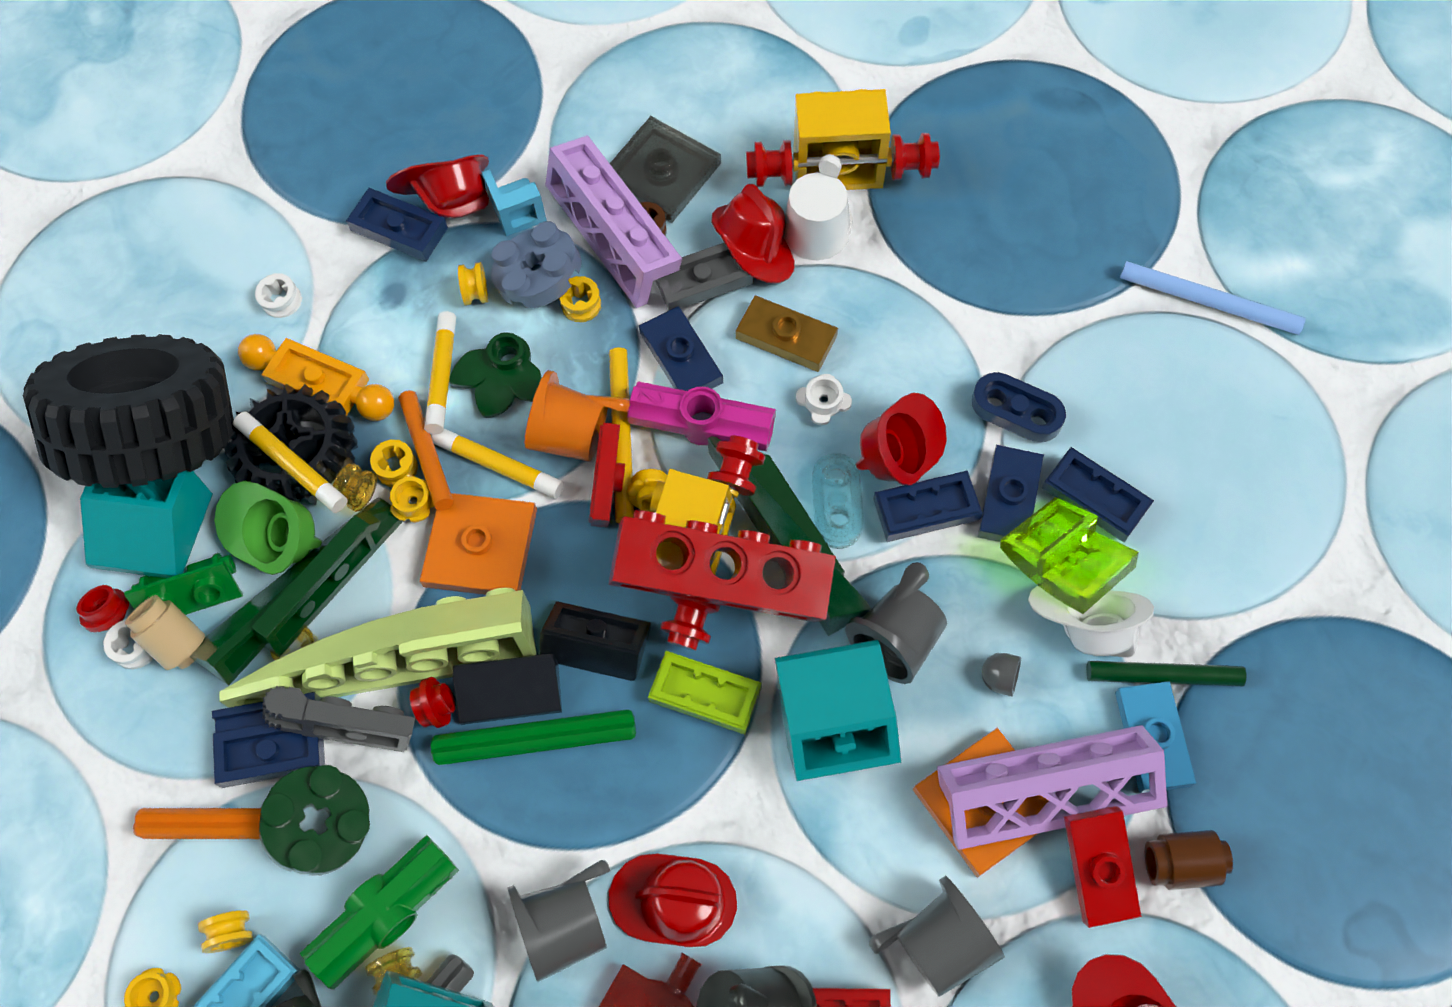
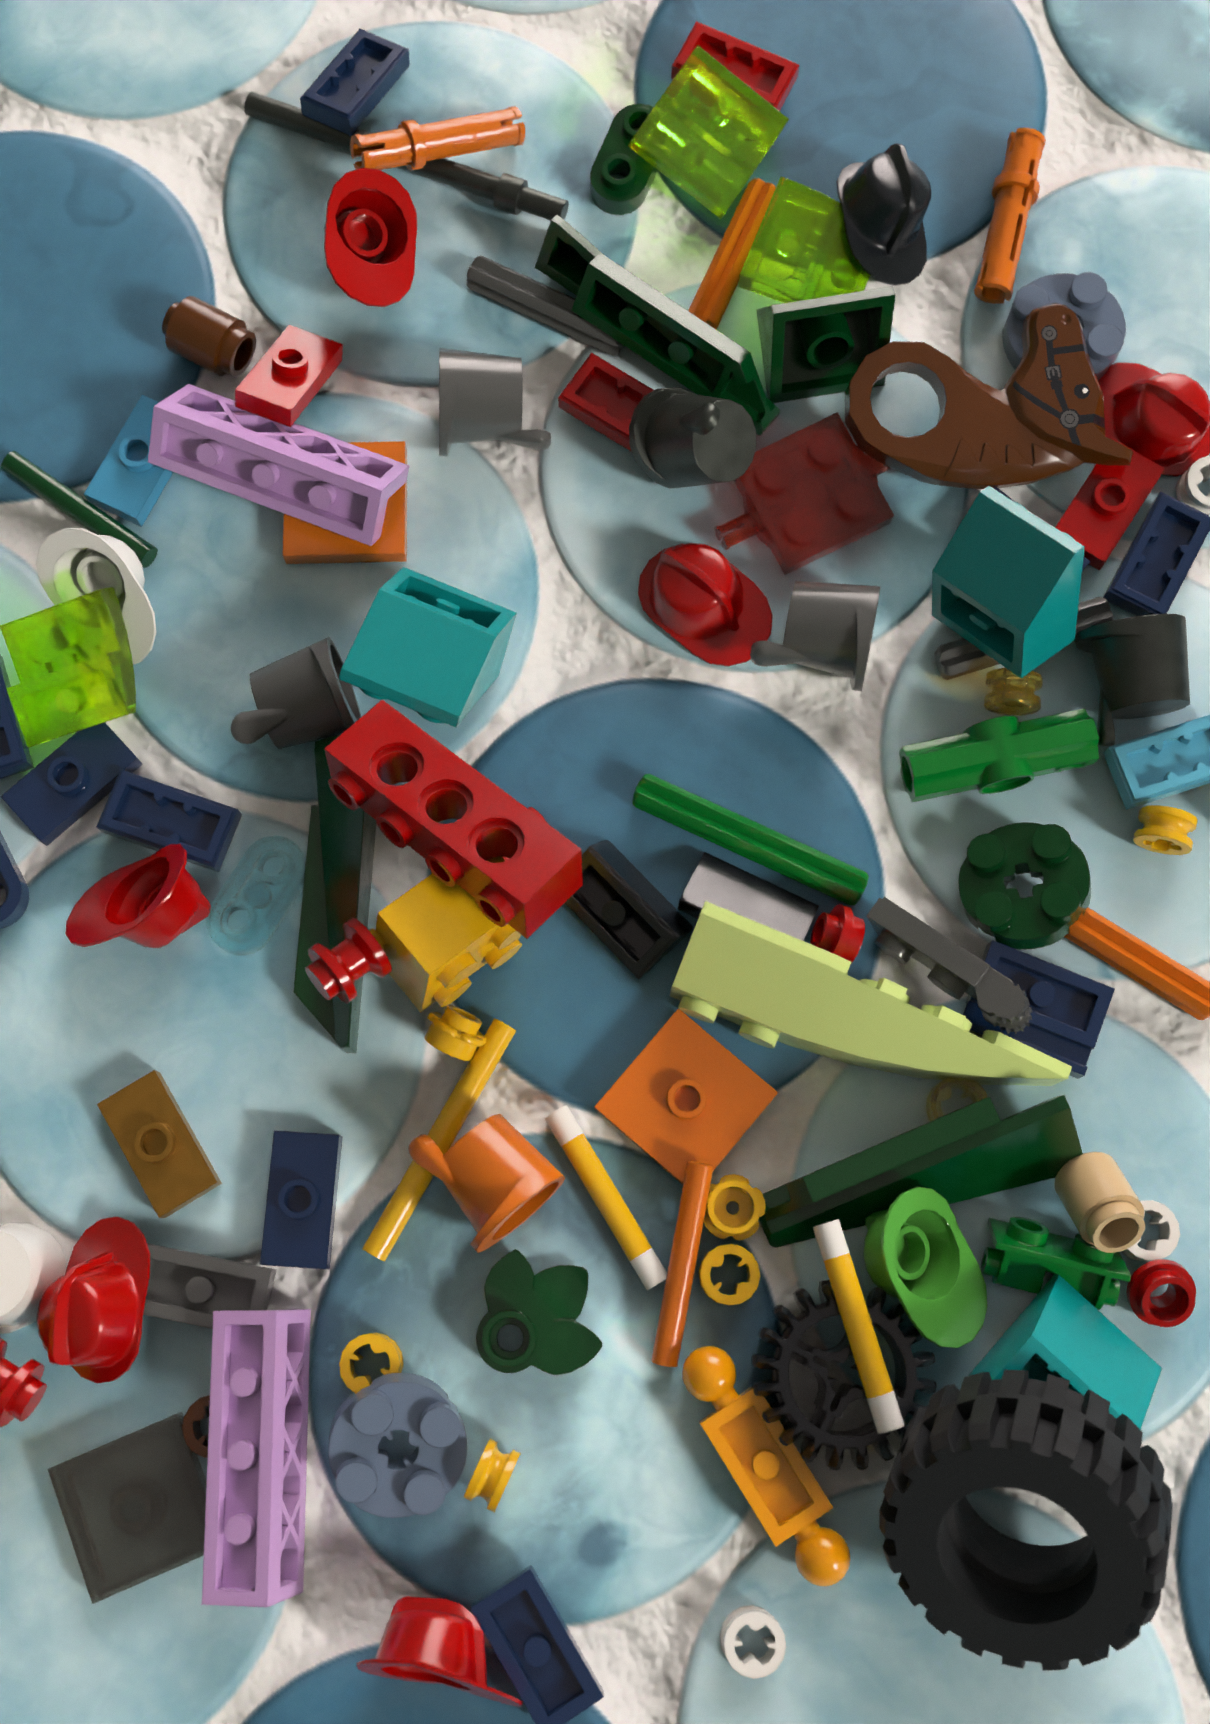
camera: 150 degrees left, 10 degrees up
(356, 486) = (793, 1265): clear yellow bush -> none
(440, 373) = (604, 1366): yellow bar -> none
(515, 204) = (360, 1581): medium azure panel -> none
(607, 475) = (495, 1074): red plate -> none
(673, 412) = (306, 1058): dark pink piece -> none
(705, 692) = (545, 770): lime plate -> none
(823, 386) = (167, 1013): white plate -> none
(1001, 673) = (234, 603): dark grey hinge -> none

